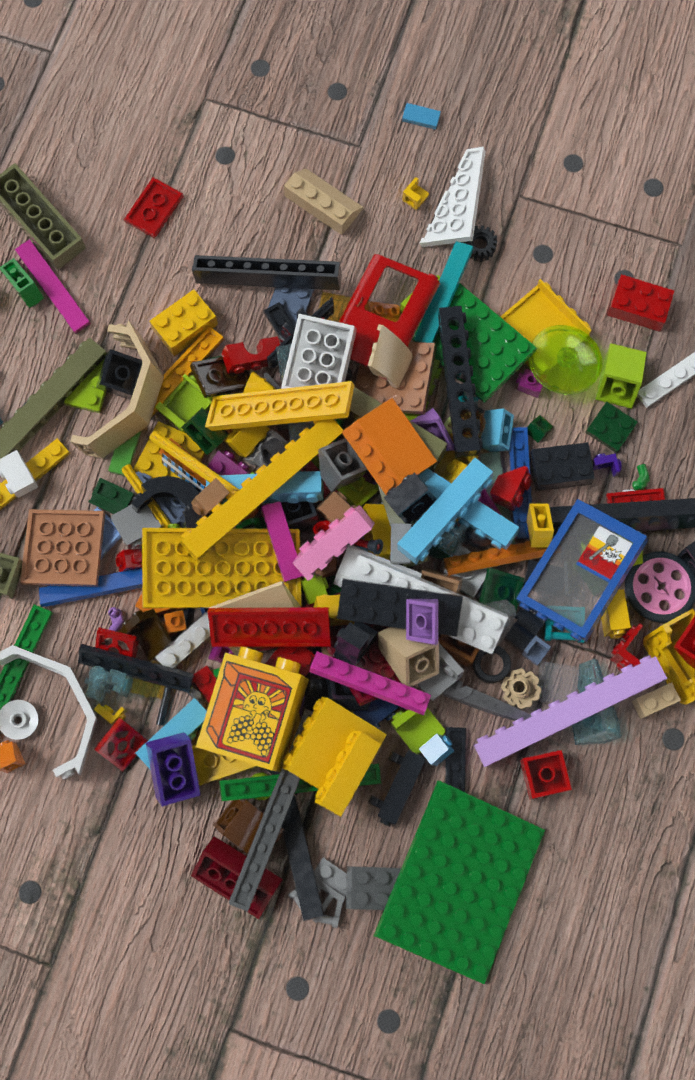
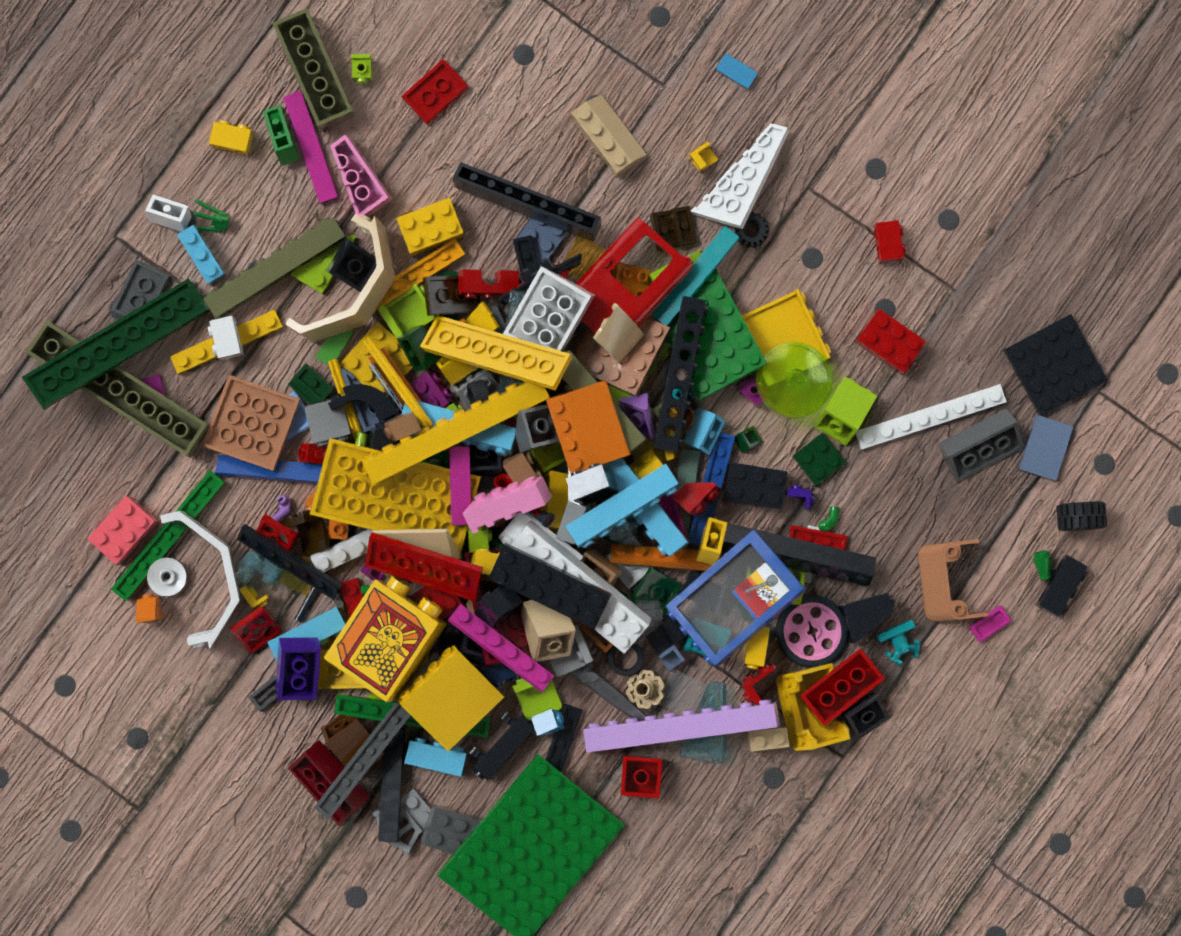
camera: 15 degrees right, 10 degrees up
(80, 204) = (358, 60): none -> lime brick
(106, 298) = (362, 184): none -> bright pink wedge
(149, 807) = (256, 702): none -> dark grey tile
(322, 821) = (435, 757): none -> medium azure brick
(347, 772) = (455, 723): yellow brick -> none
(411, 255) = (674, 227): none -> dark brown slope
(422, 620) = (566, 607): medium lavender slope -> none
(607, 218) = (889, 241): none -> red brick

